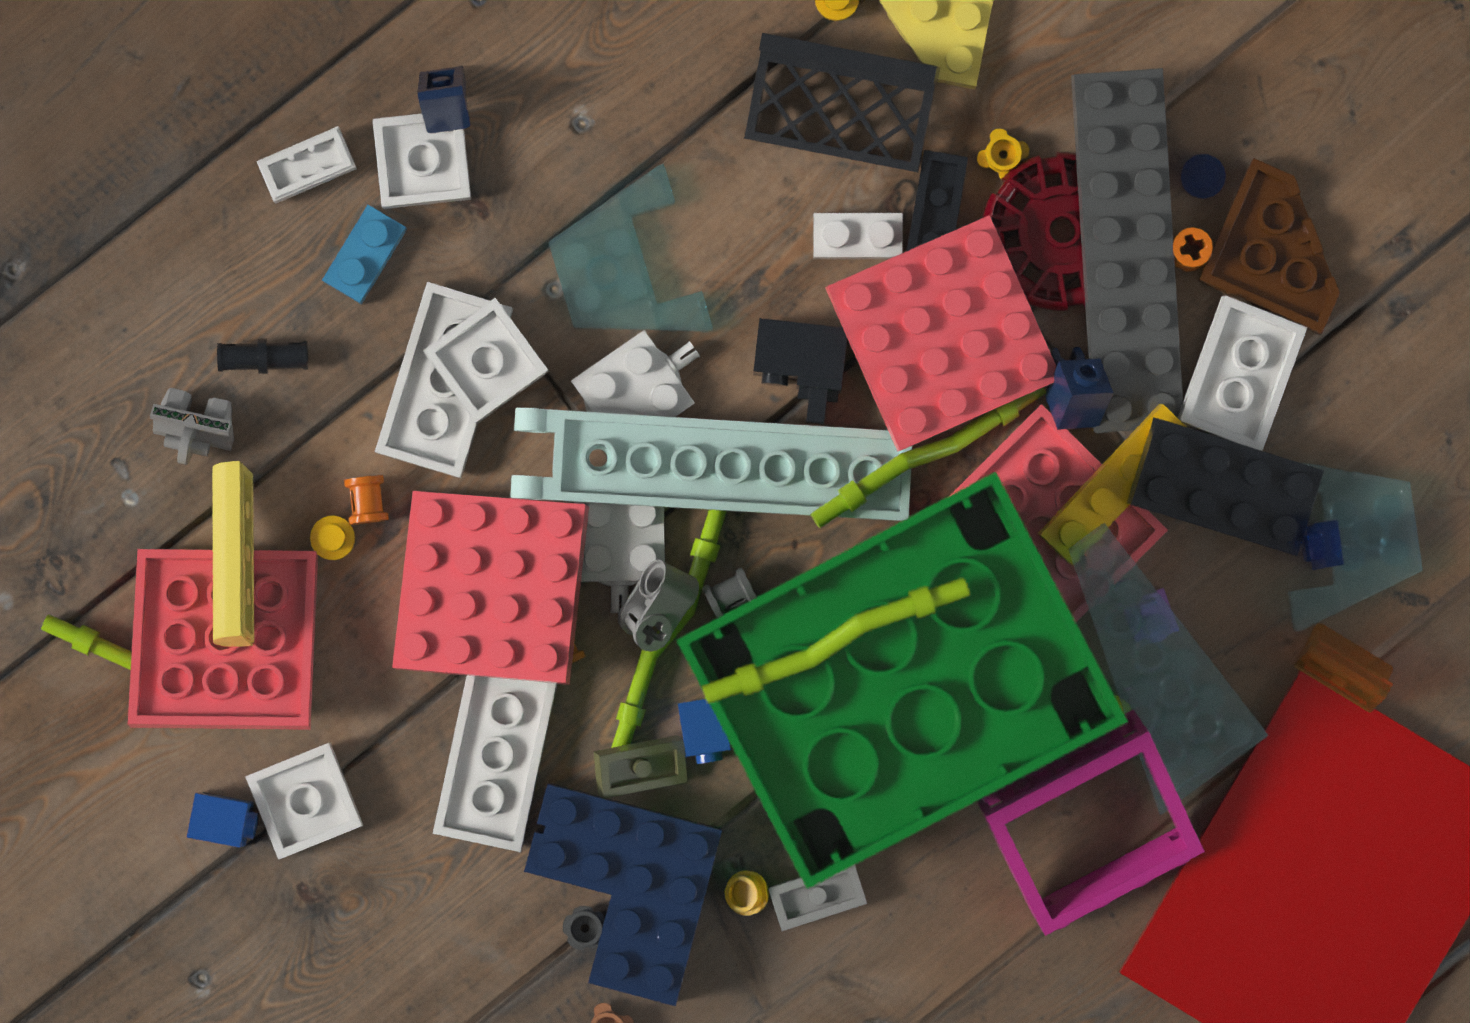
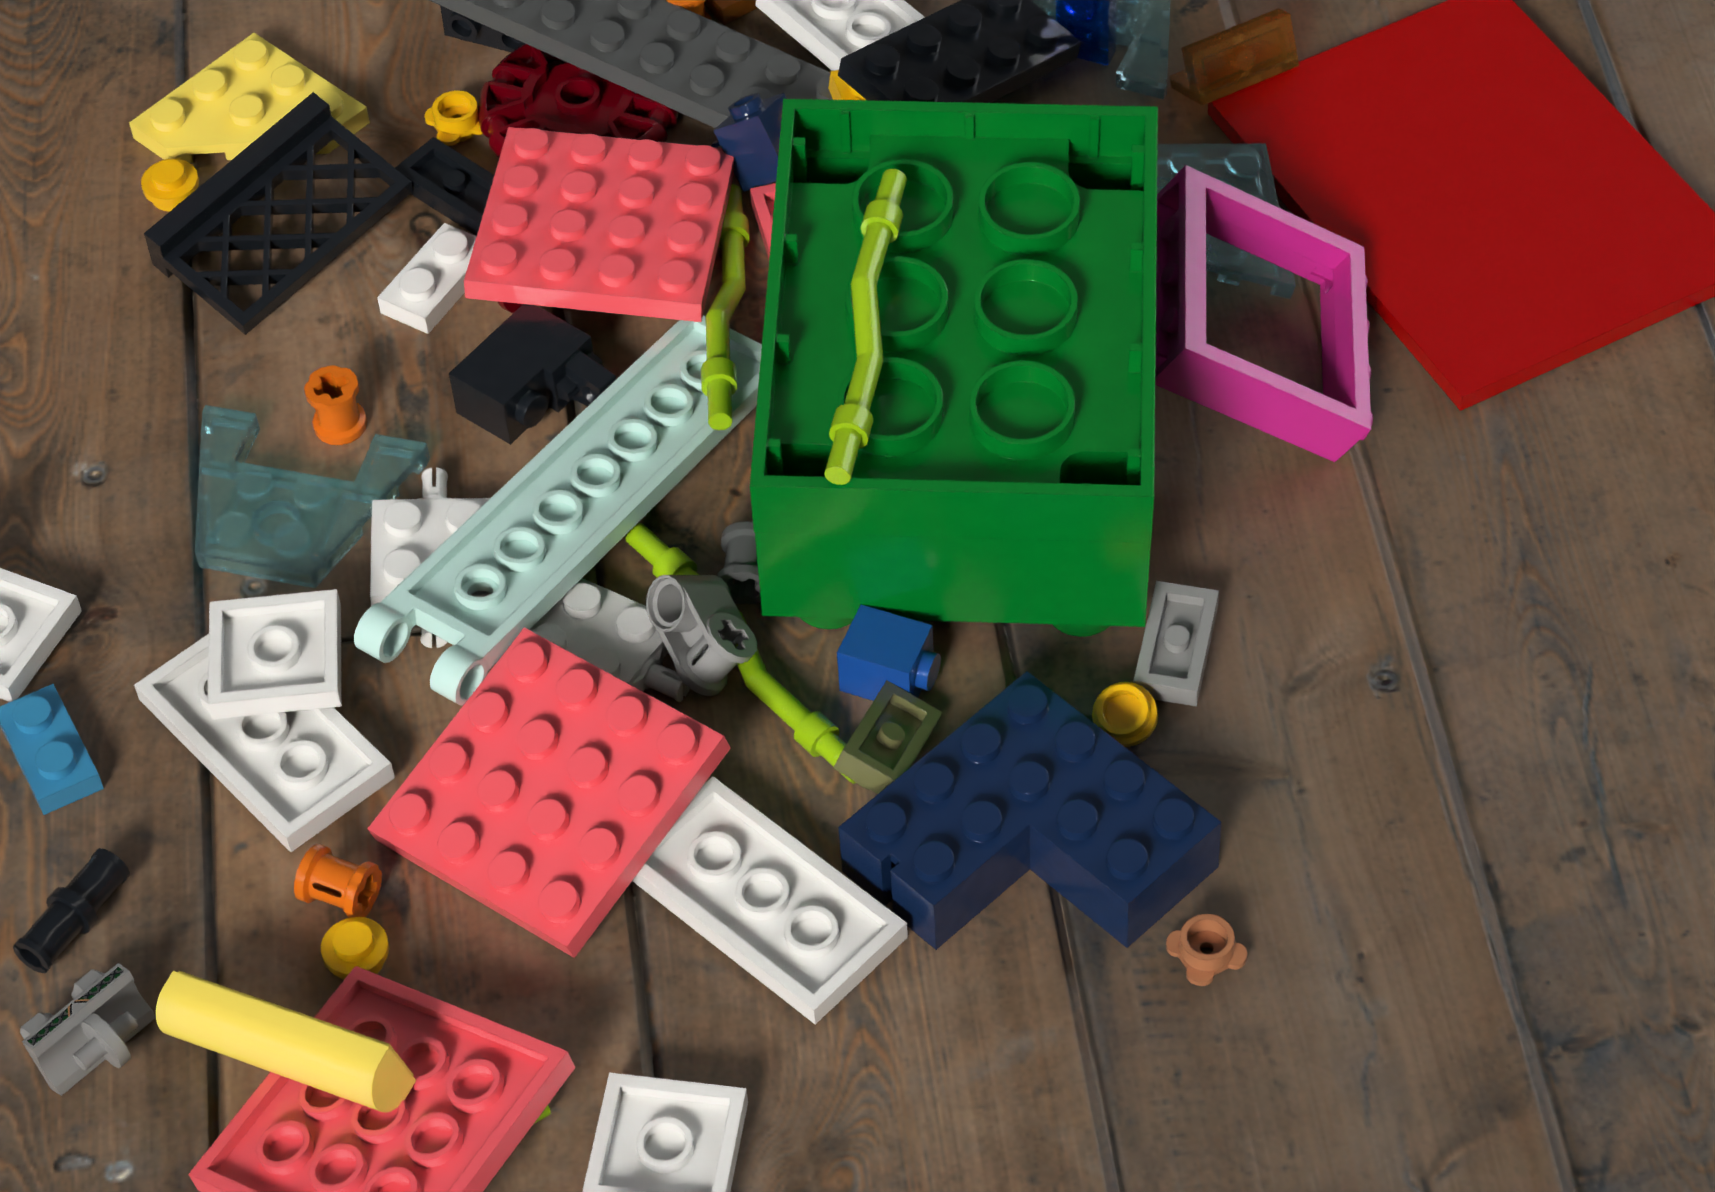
camera: 60 degrees left, 35 degrees down
(573, 923) = (1051, 895): dark grey plate -> none
(711, 264) = (337, 413): none -> orange bush

